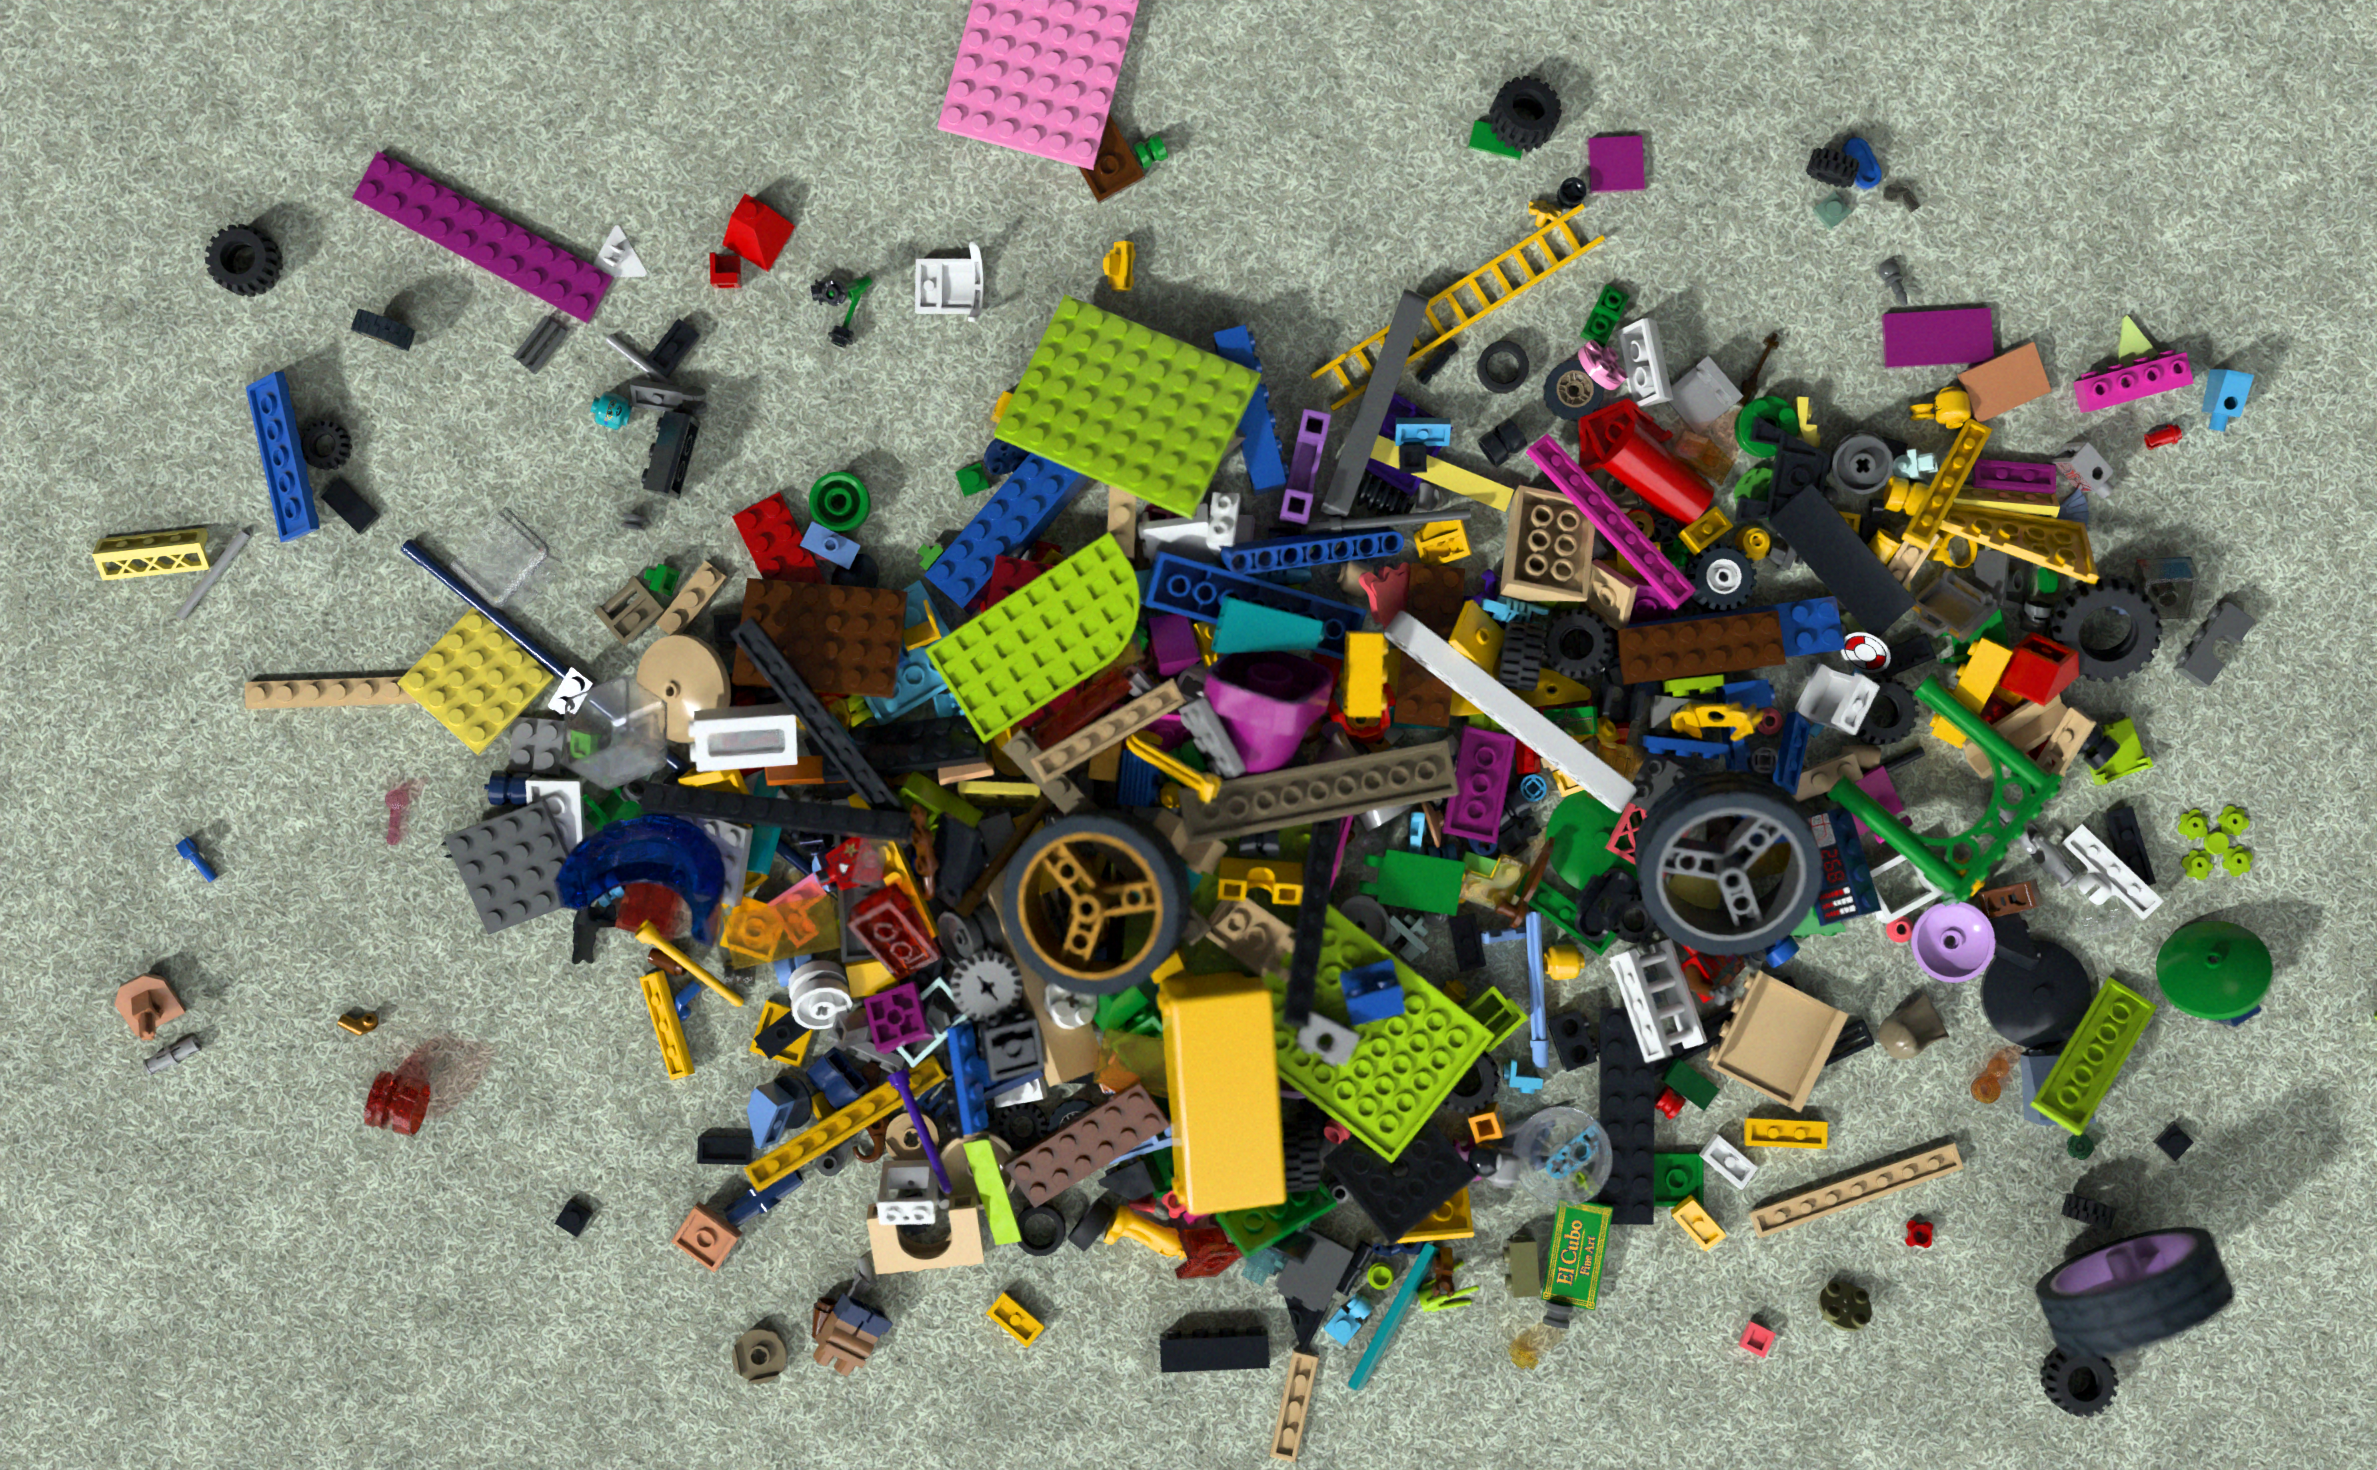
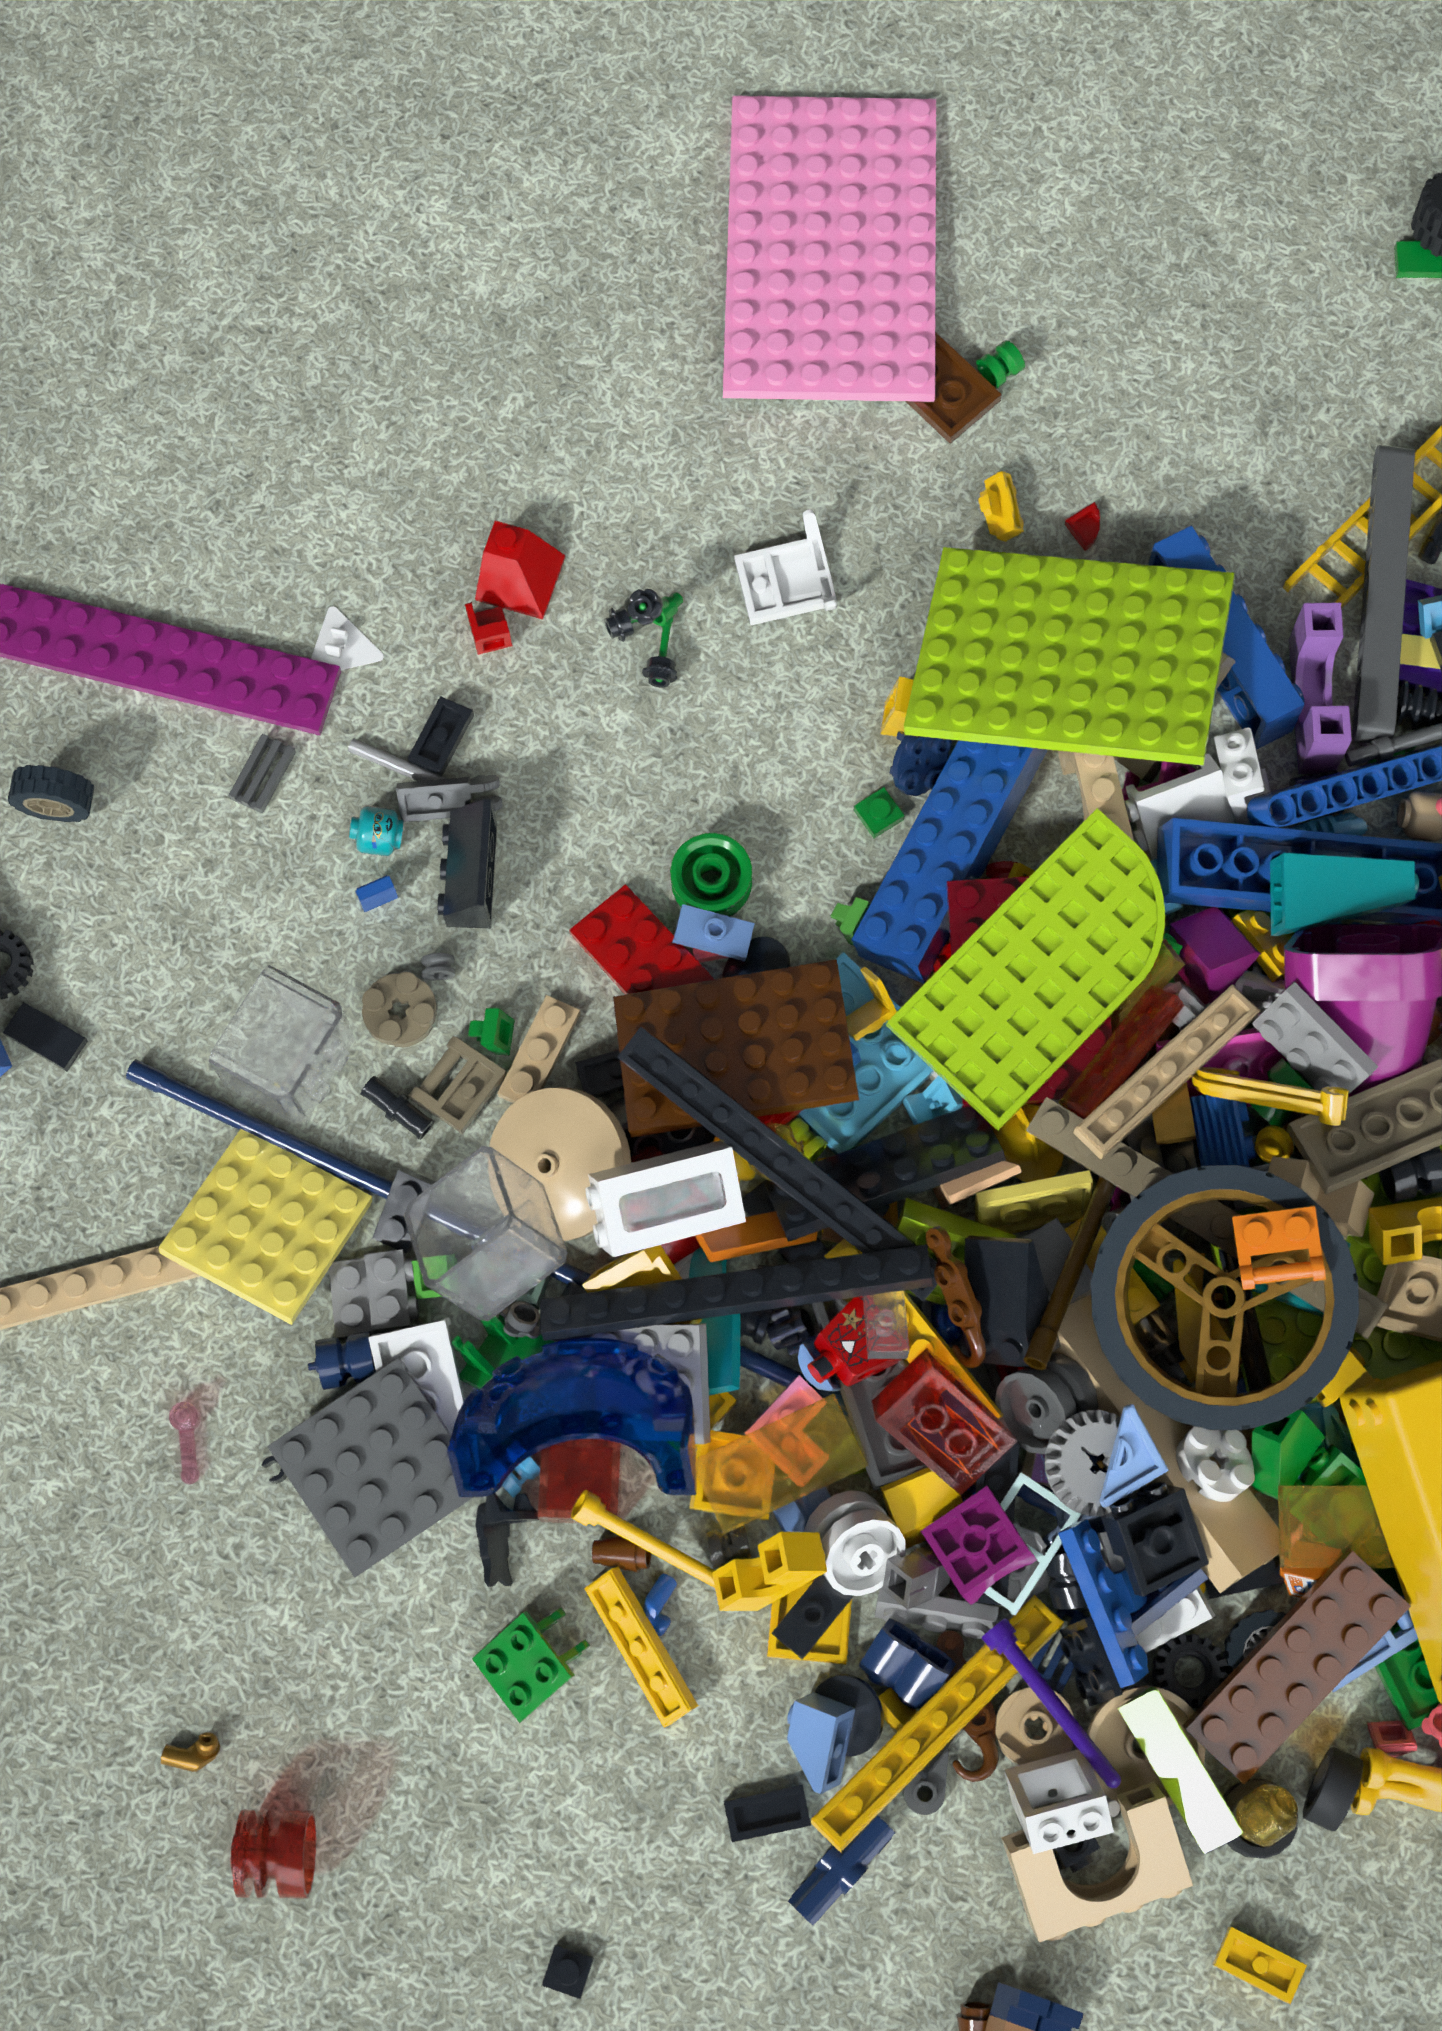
camera: 15 degrees left, 15 degrees down
(584, 617) = (397, 1107): none -> black pin
(586, 1019) = (524, 1665): none -> green plate
(601, 457) = (376, 893): none -> blue tile
(608, 532) = (391, 1029): none -> dark tan plate
(706, 1237) = (773, 1949): nougat tile -> none
(758, 1001) = (783, 1566): none -> yellow arch
(862, 1281) = (1021, 1962): light grey piece -> none
(1009, 992) = (1132, 1460): none -> light blue tile
(1041, 1232) = (1267, 1814): none -> clear yellow head
(1131, 876) = (1278, 1233): none -> orange plate
(1135, 1180) = (1375, 1707): black slope -> none
(1179, 294) = (1085, 525): none -> red tile

